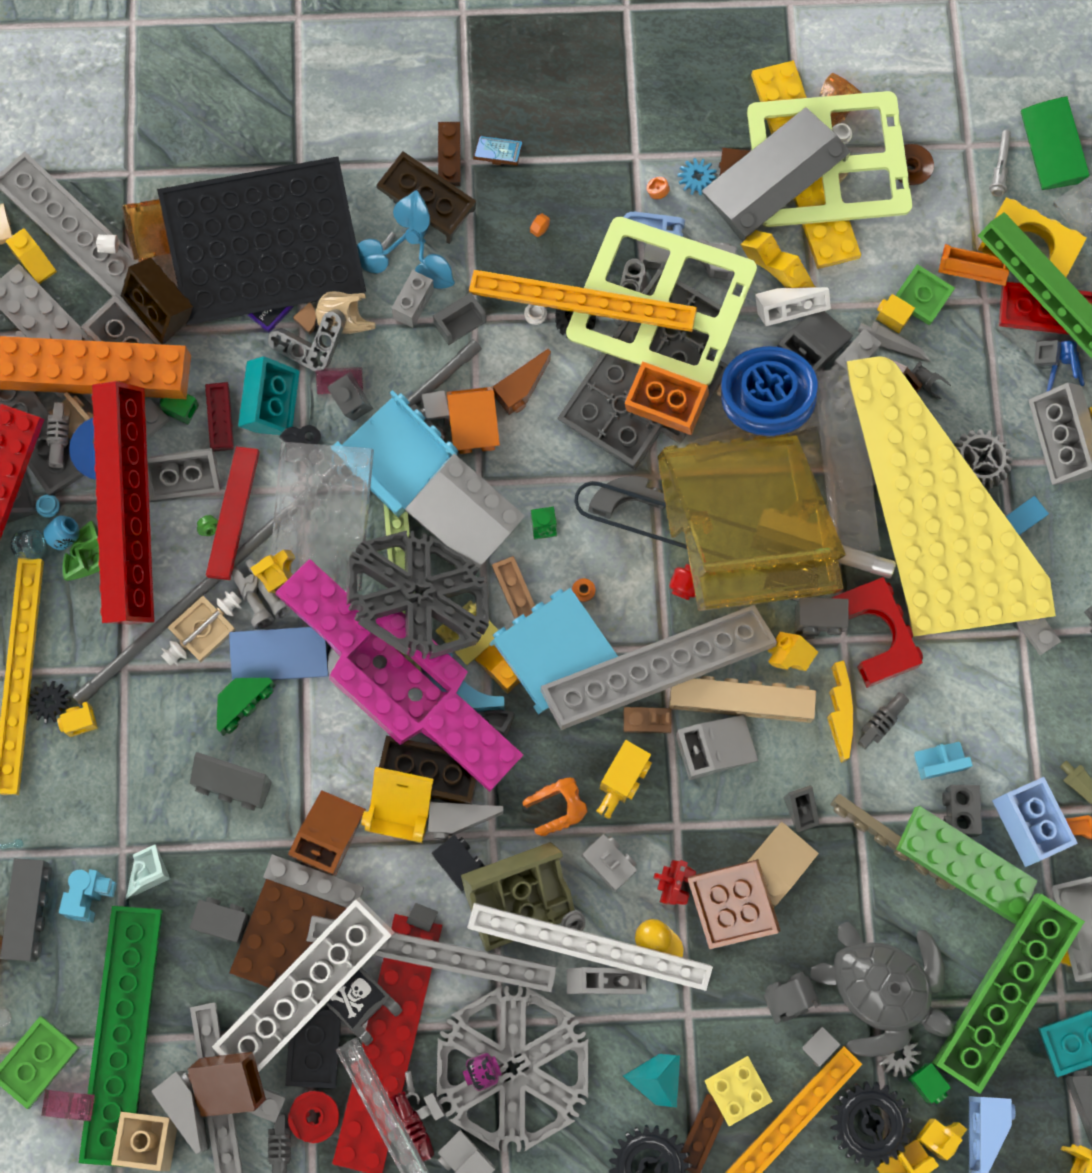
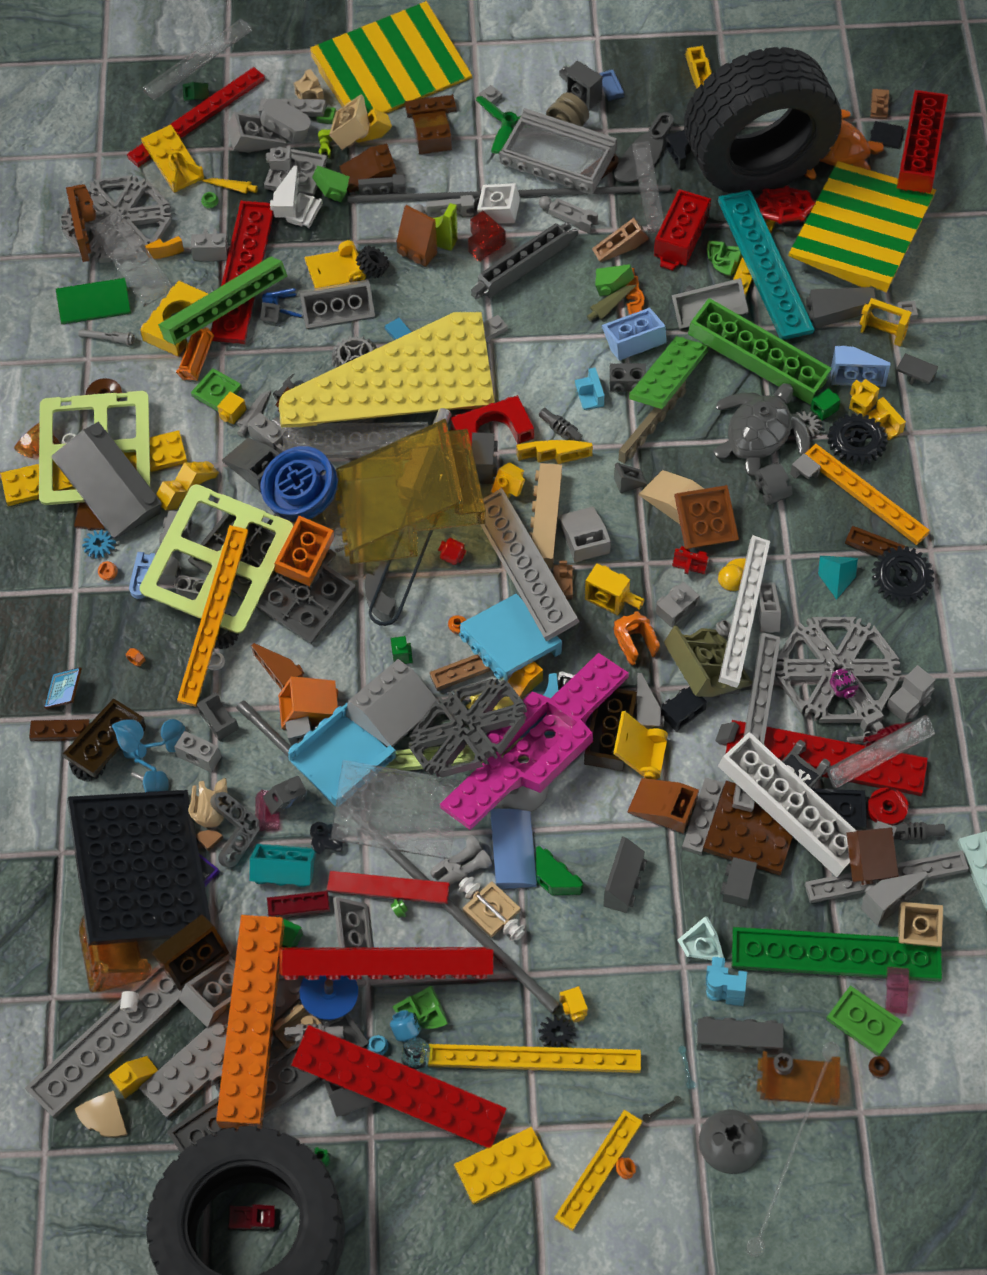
camera: 85 degrees left, 15 degrees down
(274, 570) = (443, 844): yellow brick -> none
(738, 1091) = (842, 520): light yellow hinge -> none
(791, 303) = (220, 473): white slope -> none

